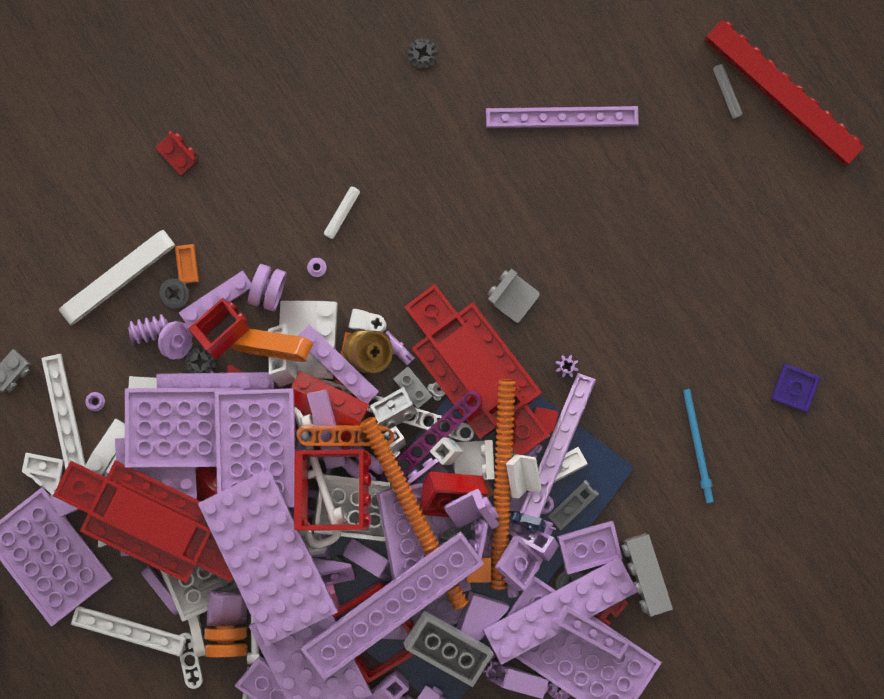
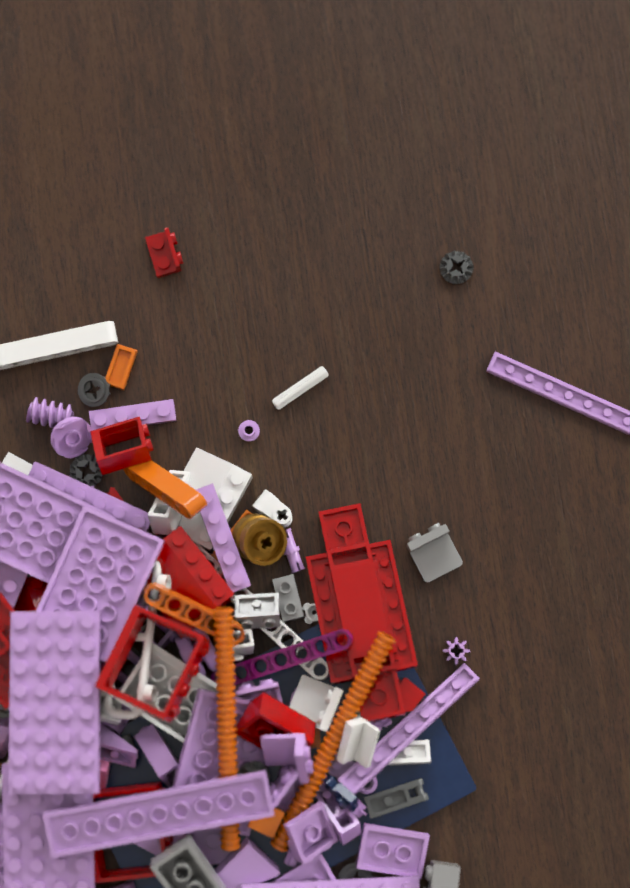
camera: 25 degrees right, 5 degrees down
(267, 287) = (188, 427): lavender wheel -> none
(323, 415) = (181, 582): lavender tile -> none
(446, 451) = (291, 679): white brick -> none
(705, 482) = (544, 840): dark azure bar -> none

